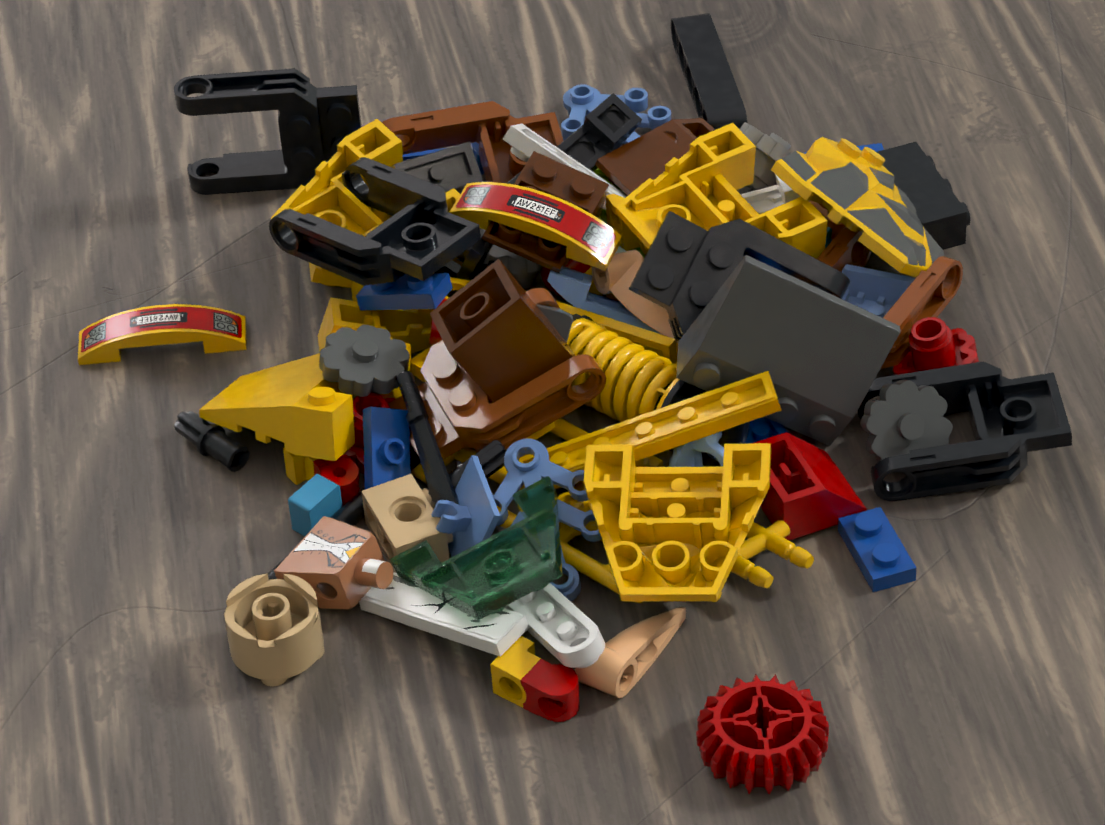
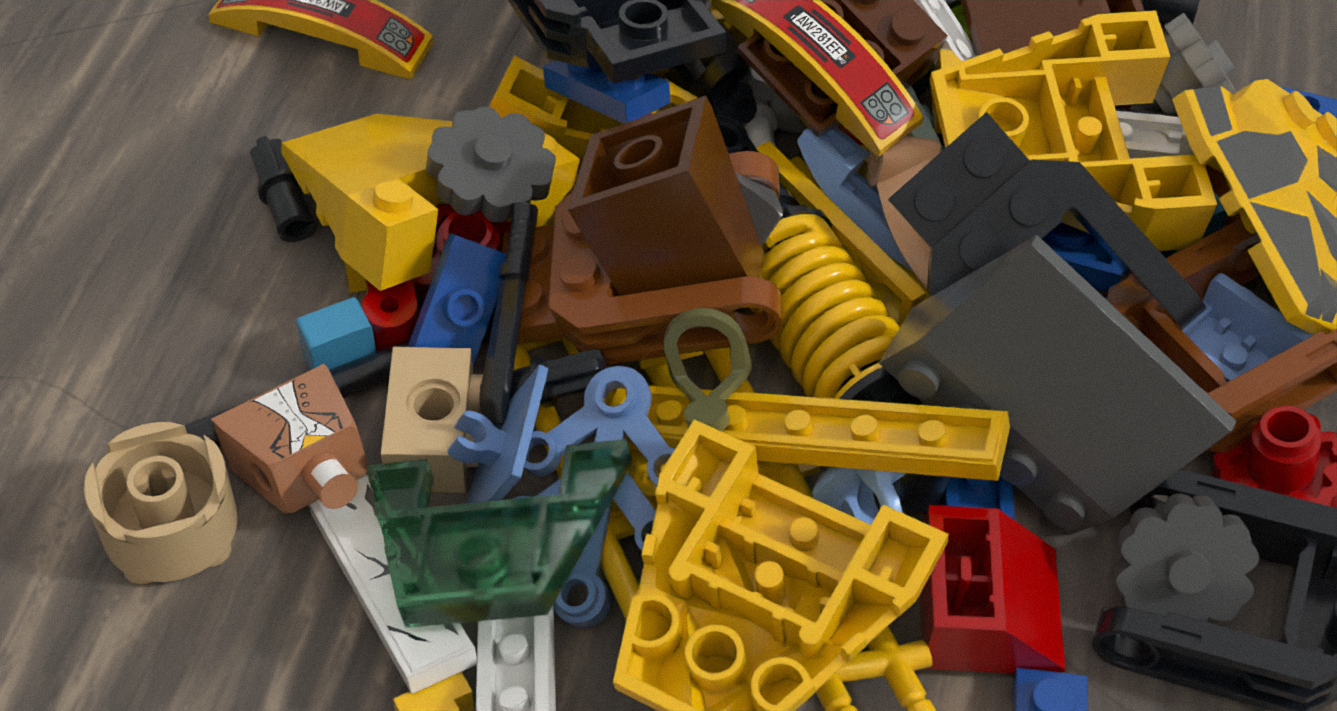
camera: 20 degrees right, 10 degrees up
(578, 444) = (711, 408): none -> olive piece

